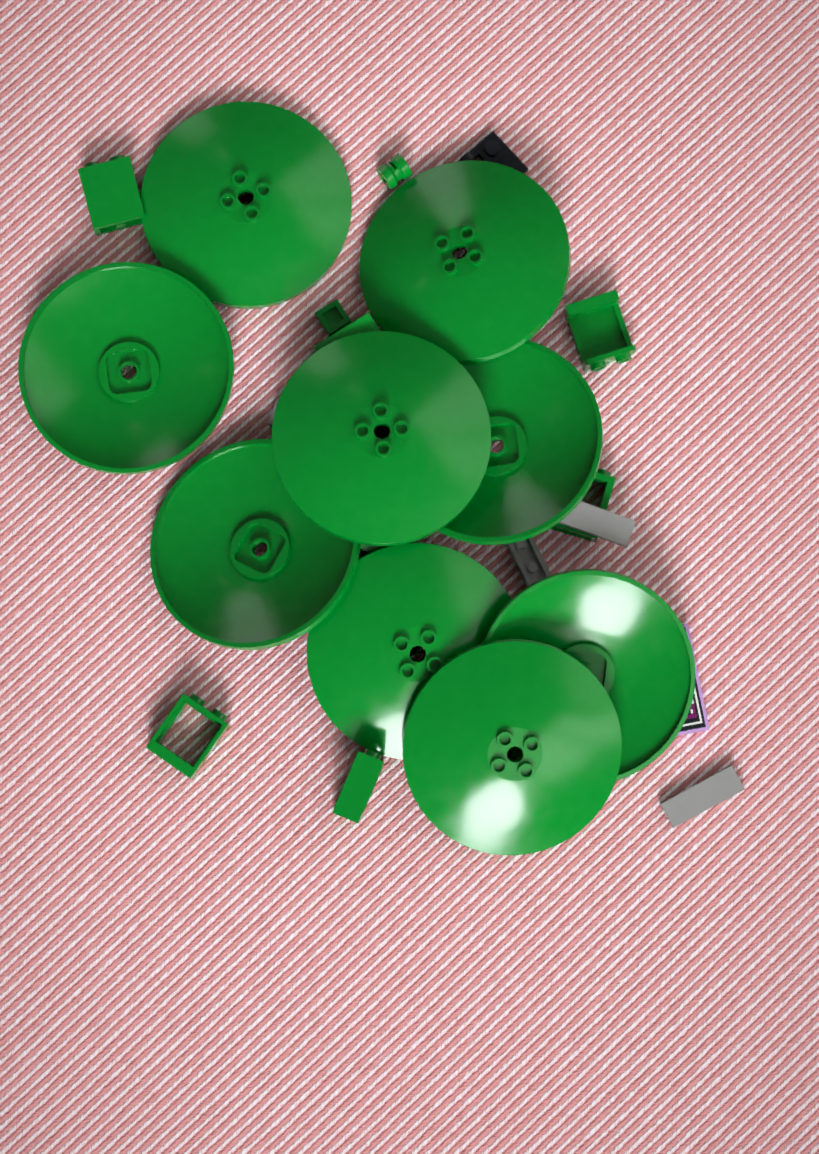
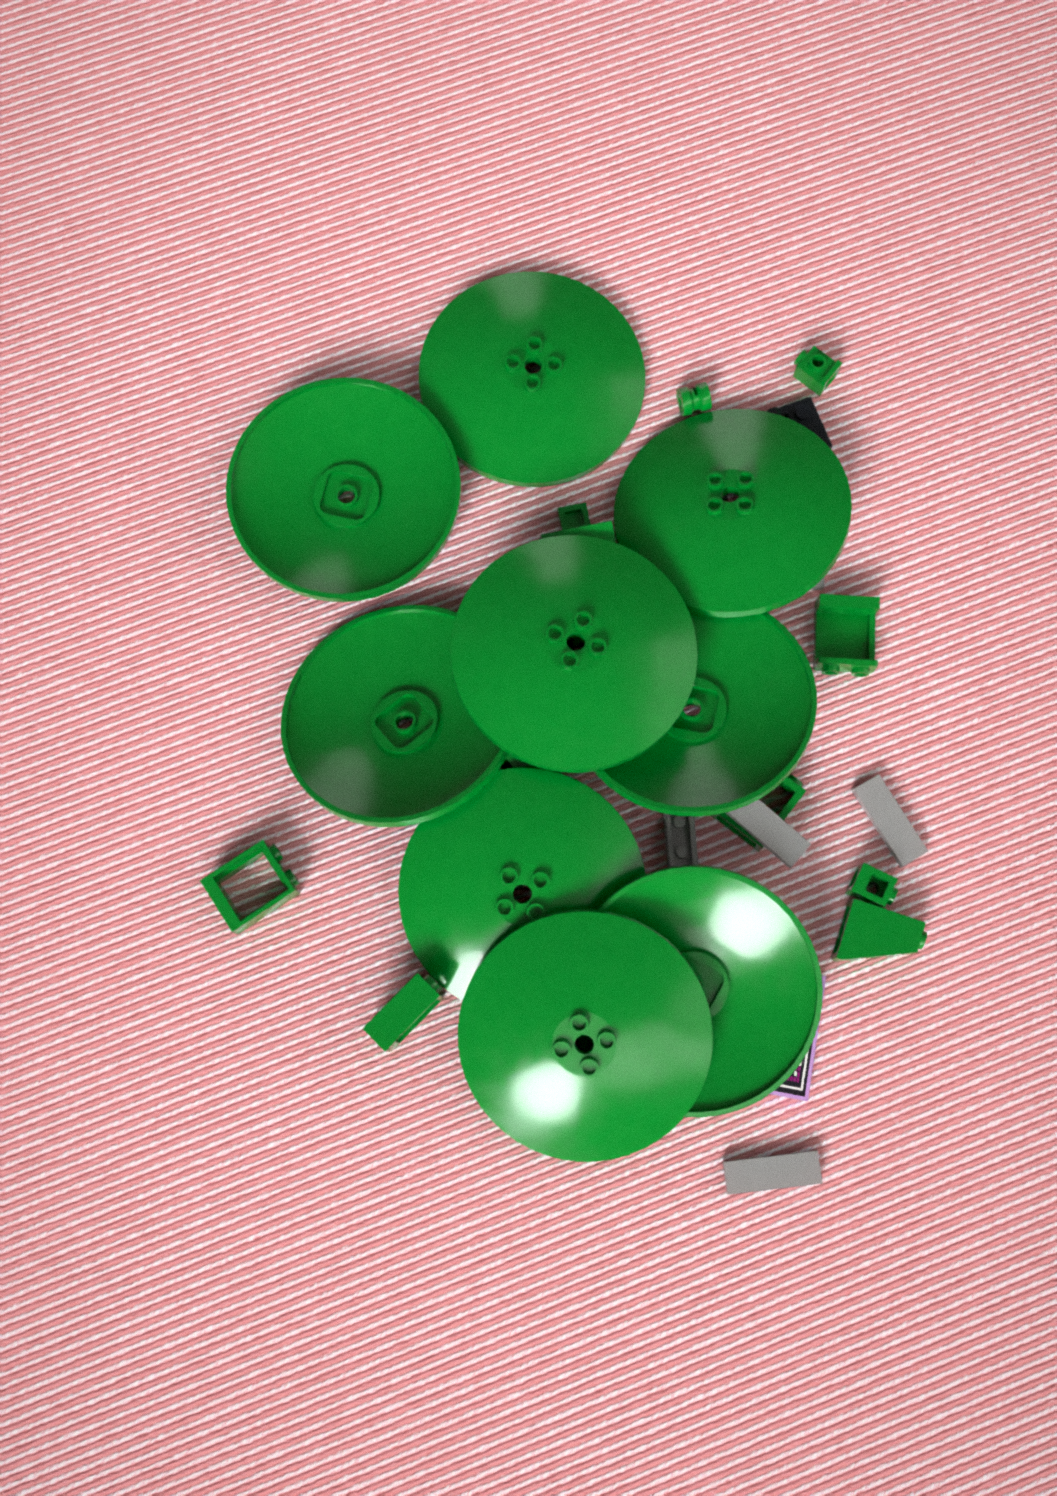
camera: 25 degrees right, 5 degrees down
(112, 194) = (401, 319): green panel -> none
(490, 113) = (816, 370): none -> green brick
(693, 474) = (889, 821): none -> light grey tile
(708, 529) = (884, 883): none -> green brick
(715, 572) = (876, 933): none -> green slope

